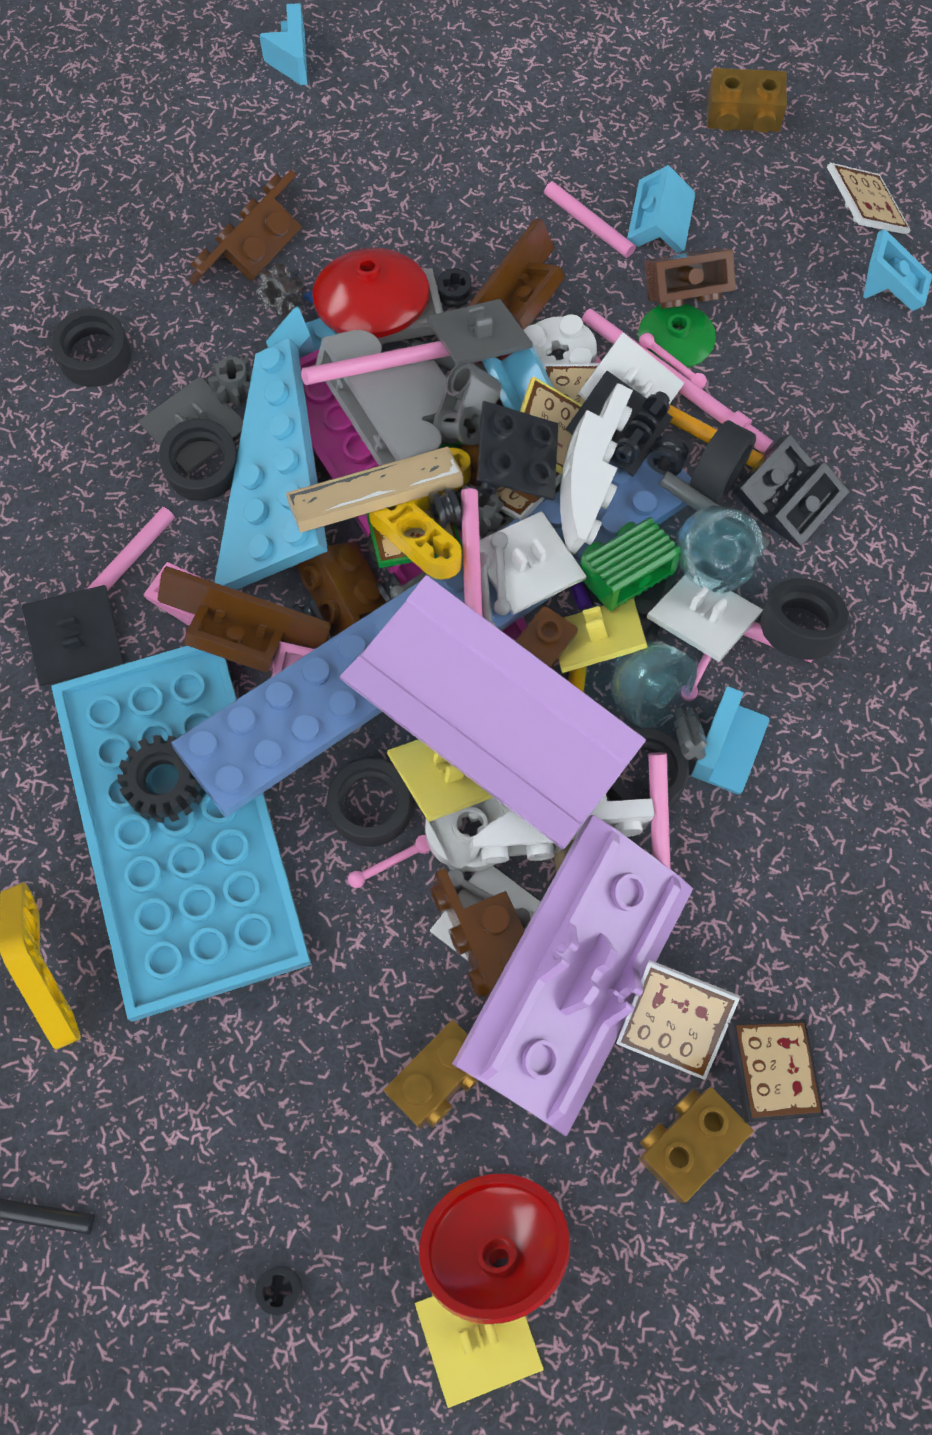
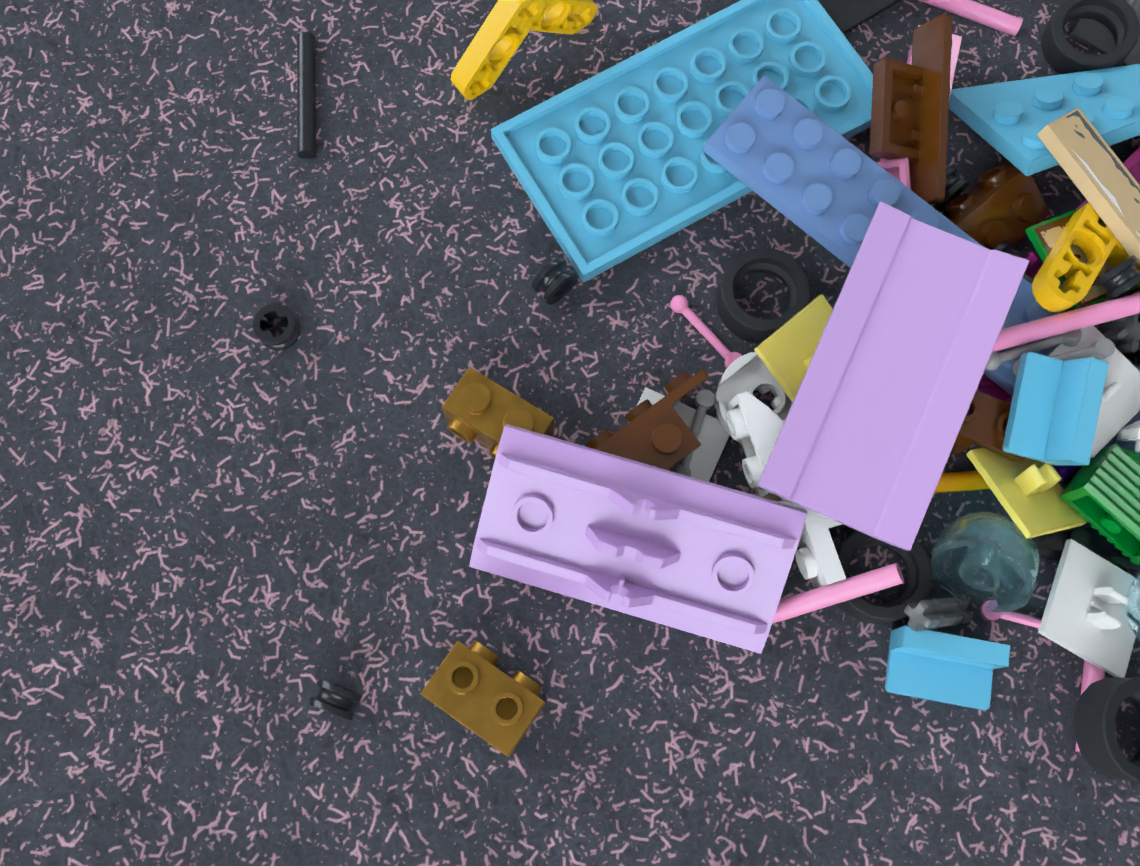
camera: 75 degrees right, 5 degrees up
(134, 781) = (721, 66): black tyre -> none
(306, 990) = (555, 281): none -> black bush
(474, 1355) = (267, 520): light yellow piece -> none
(491, 1221) = (345, 485): red dish -> none
(546, 593) = (1055, 409): none -> medium azure panel
(671, 1292) = (335, 699): none -> black bush
(678, 1020) = (610, 657): piece -> none
(775, 1070) = (580, 774): piece -> none

